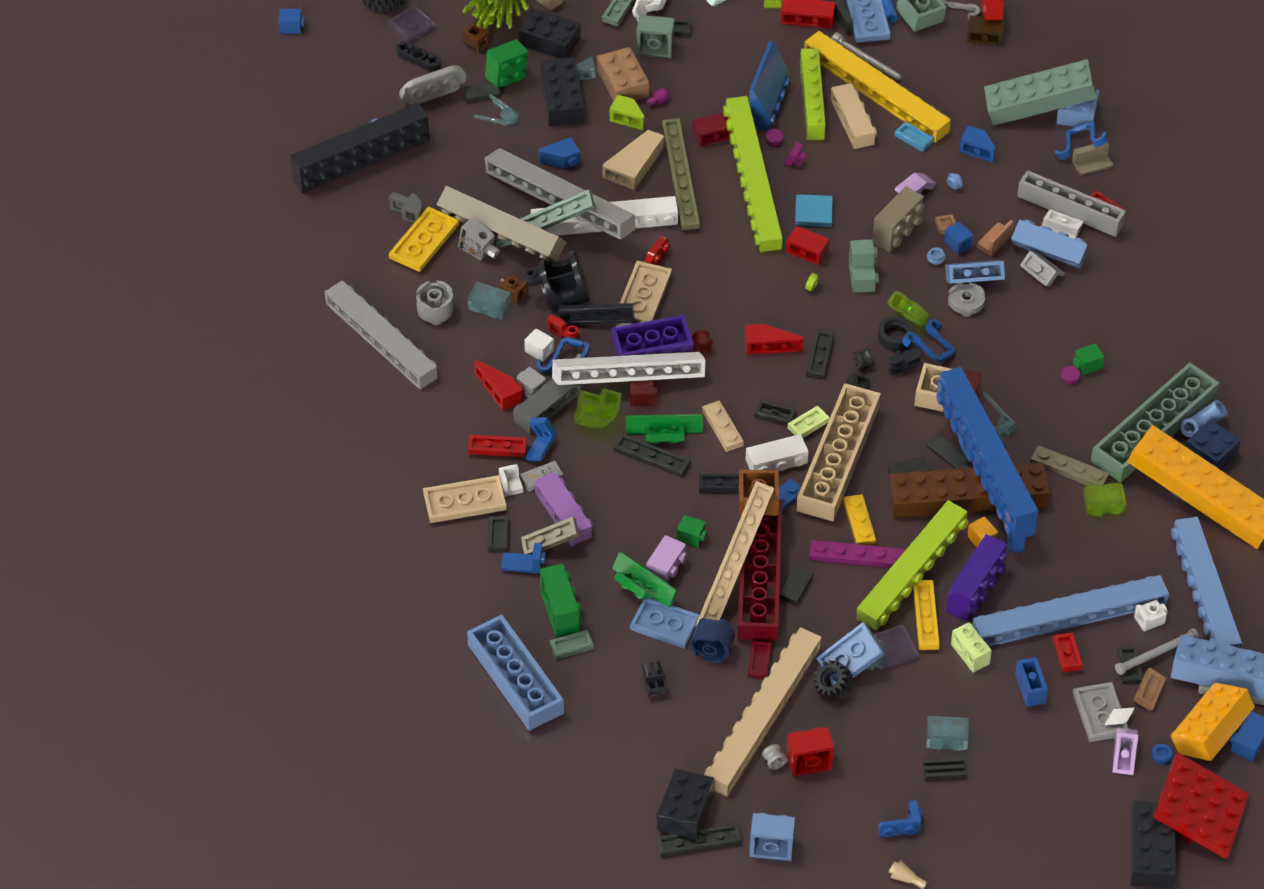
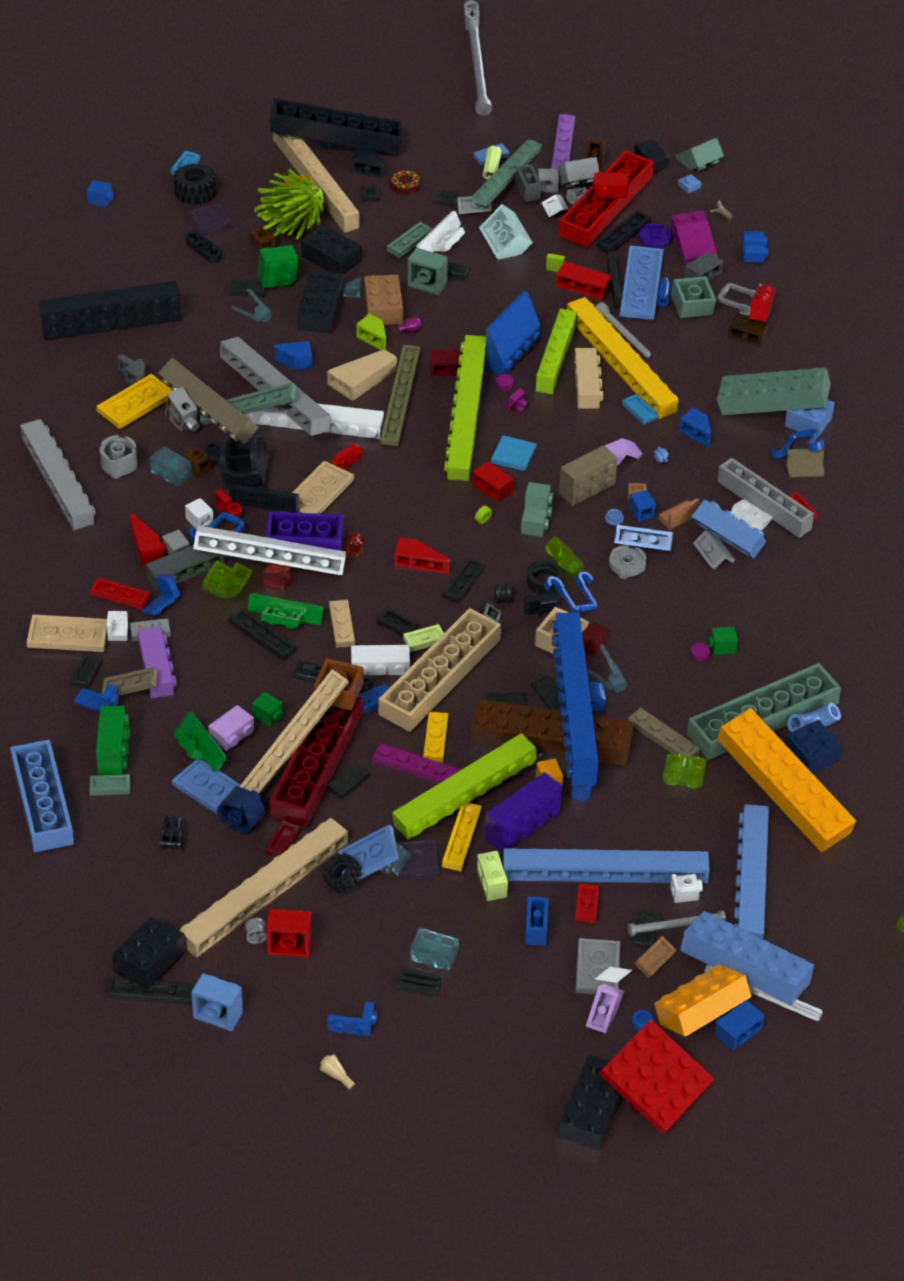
camera: 15 degrees right, 5 degrees down
(432, 85) = (202, 271): light grey tile -> none

